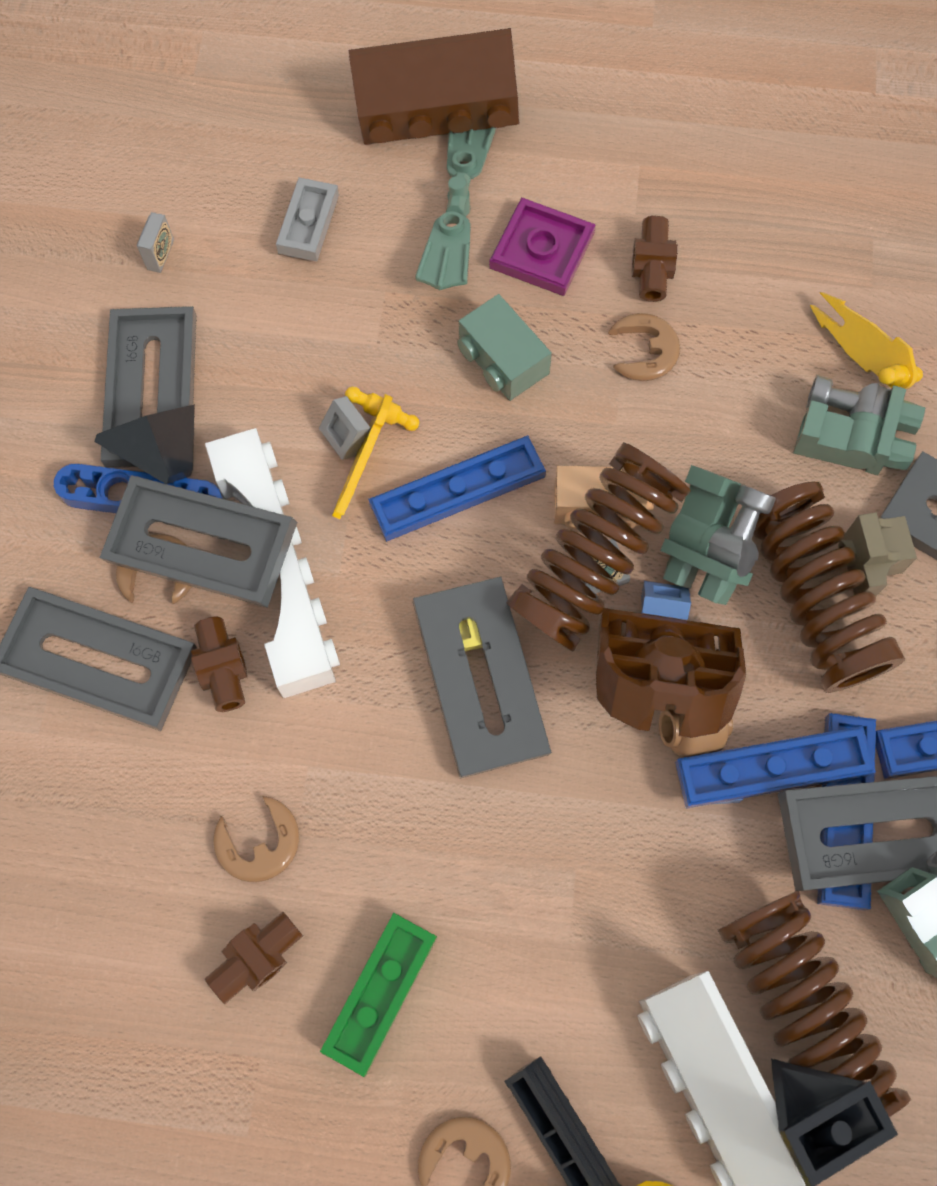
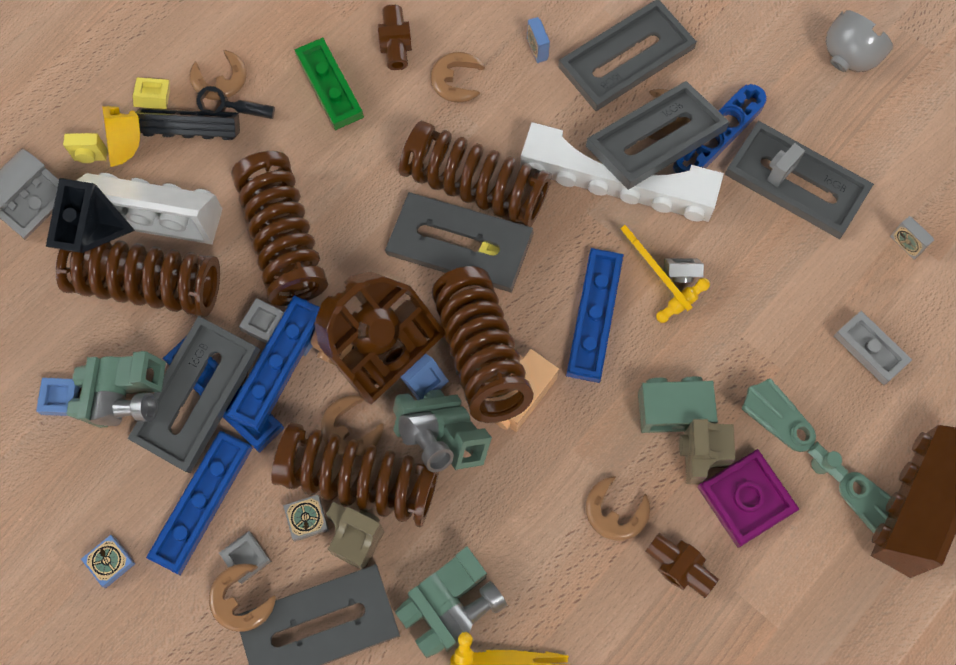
camera: 125 degrees right, 0 degrees up
(143, 768) = (538, 39): none -> medium blue tile
(147, 395) = (784, 164): none -> light grey plate
(156, 443) = (744, 149): black slope -> none
(219, 664) = (573, 110): reddish brown axle -> none
(388, 792) = (420, 143): none -> reddish brown piece
(491, 1091) = (240, 106): none -> black piece
(531, 293) = (706, 447): none -> dark tan brick
(566, 954) = (253, 199): none -> reddish brown piece
(739, 824) = (261, 320): none -> light grey plate
(792, 653) = (331, 416): none -> medium nougat head
(901, 615) = (306, 518): none -> tile

